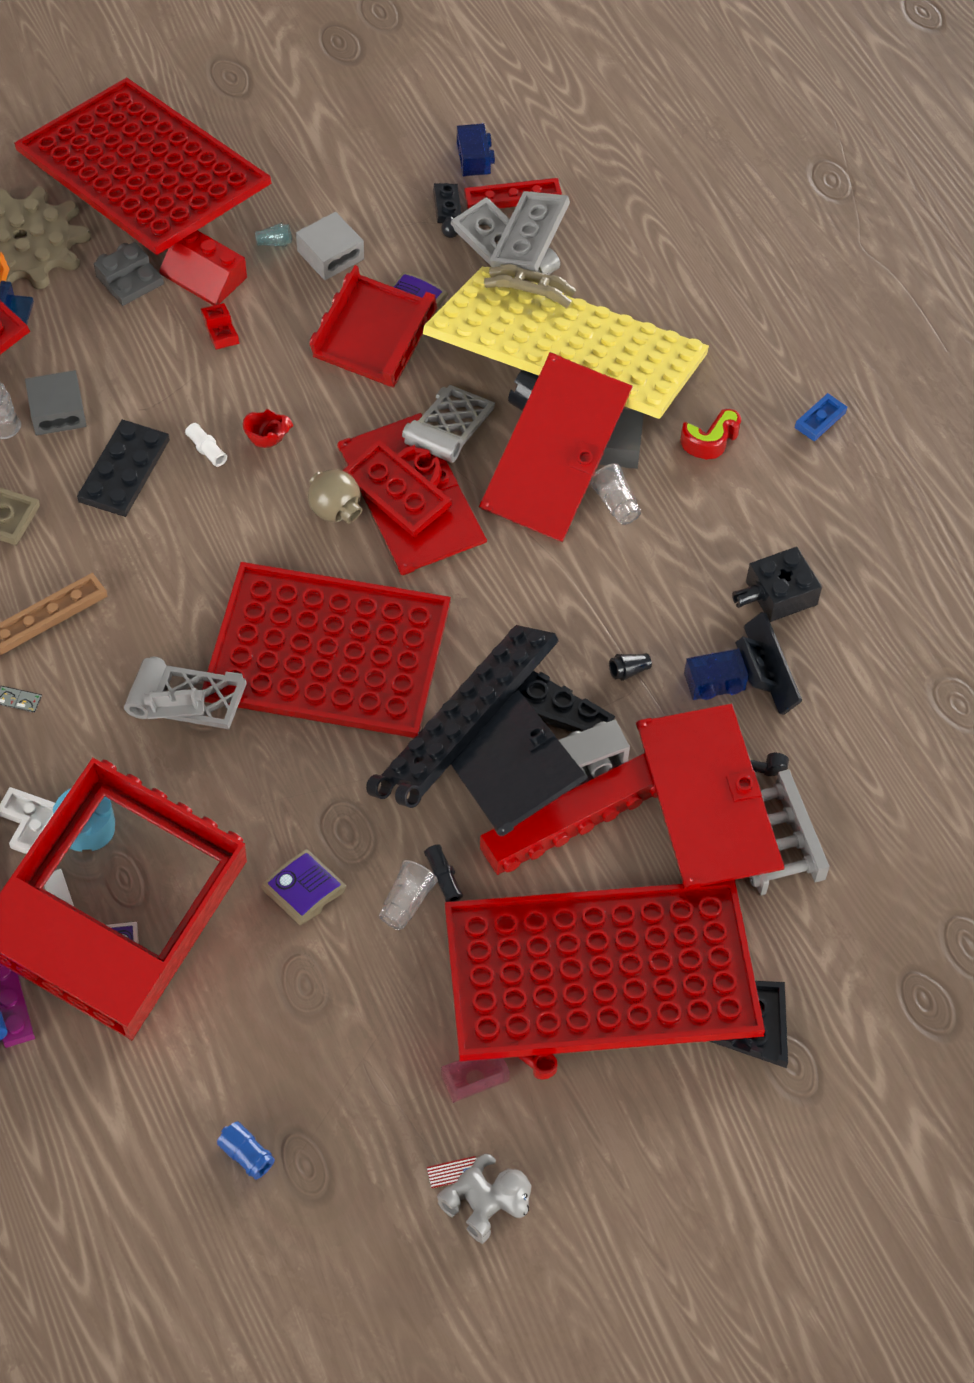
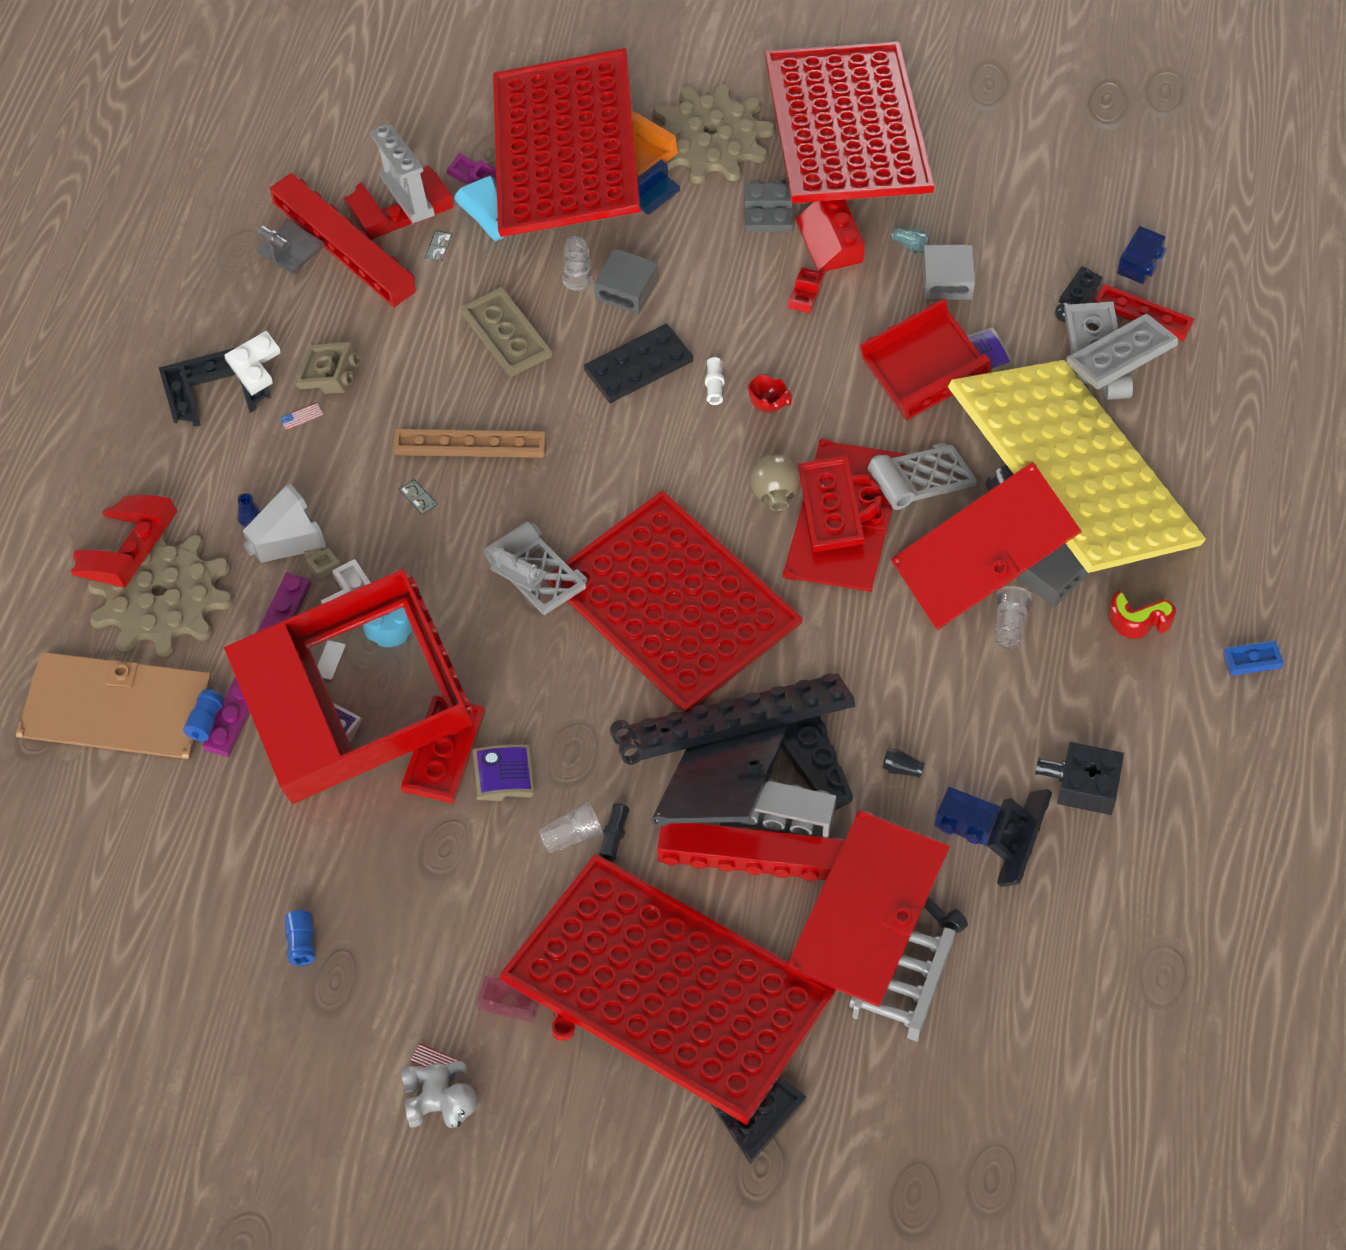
camera: 40 degrees right, 0 degrees up
(243, 917) = (439, 767): none -> red plate
(502, 277) = (1088, 406): dark tan piece -> none

